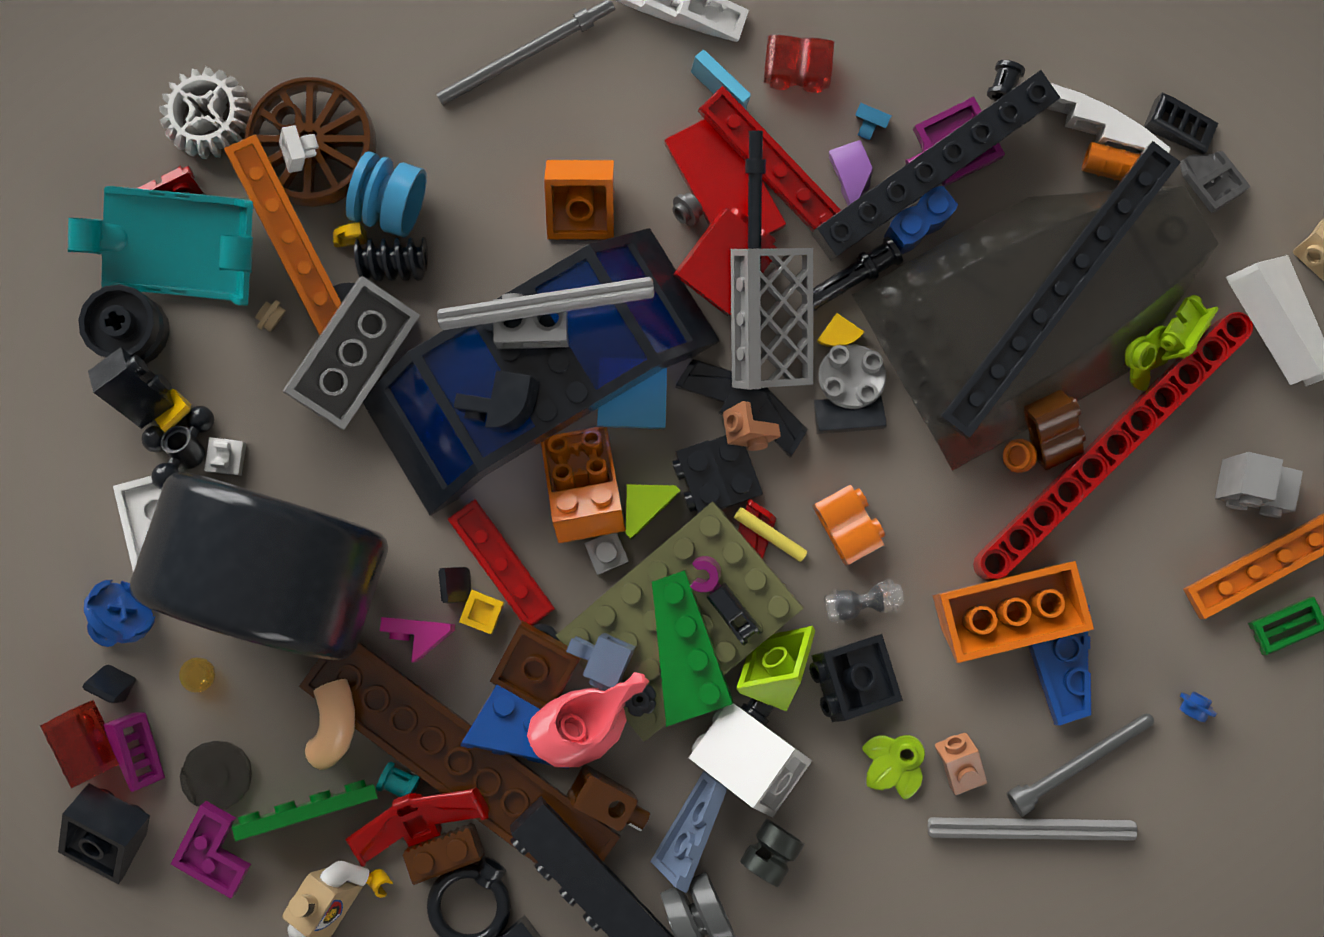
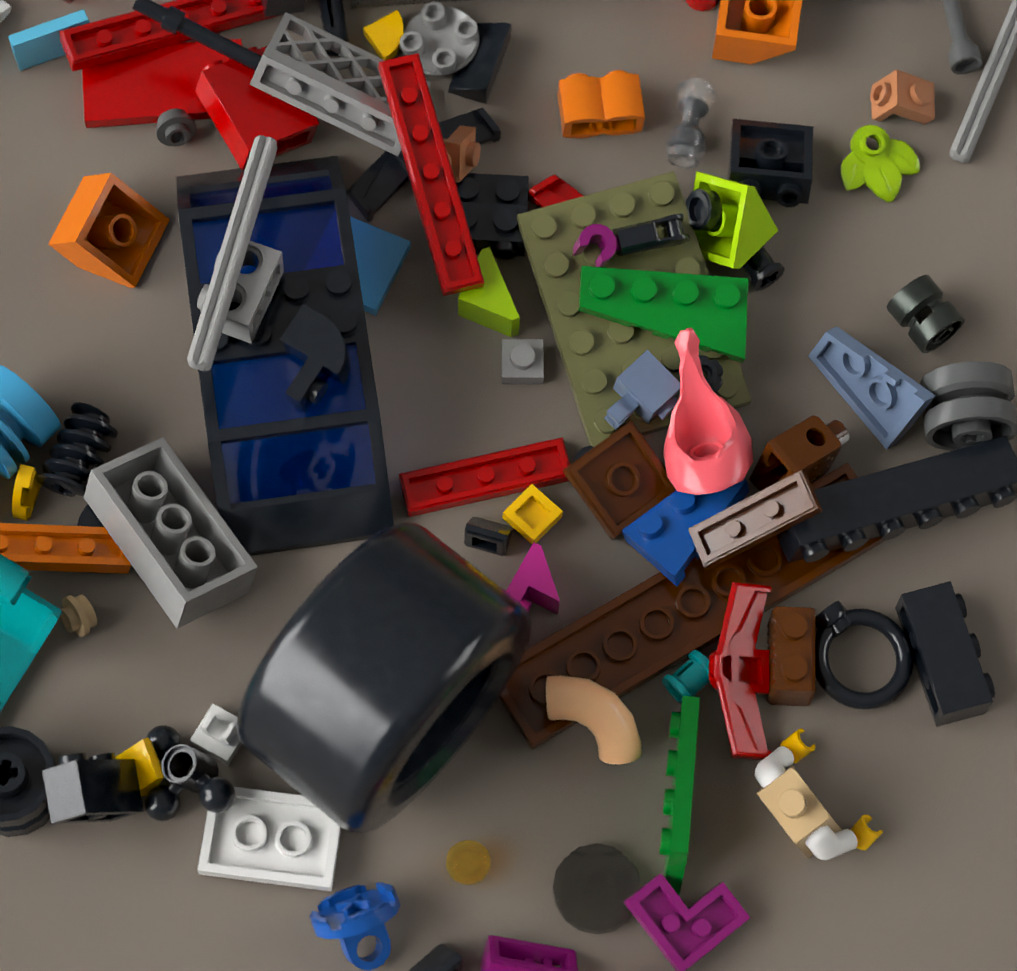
camera: 70 degrees left, 15 degrees down
(521, 790) = (755, 519): none -> tile
(582, 484) = (438, 351): orange slope -> none
(714, 420) = (431, 174): none -> red tile
(749, 759) = (810, 294): white slope -> none
(770, 534) = (578, 184): light yellow piece -> none
(779, 645) = (704, 209): none -> black tile

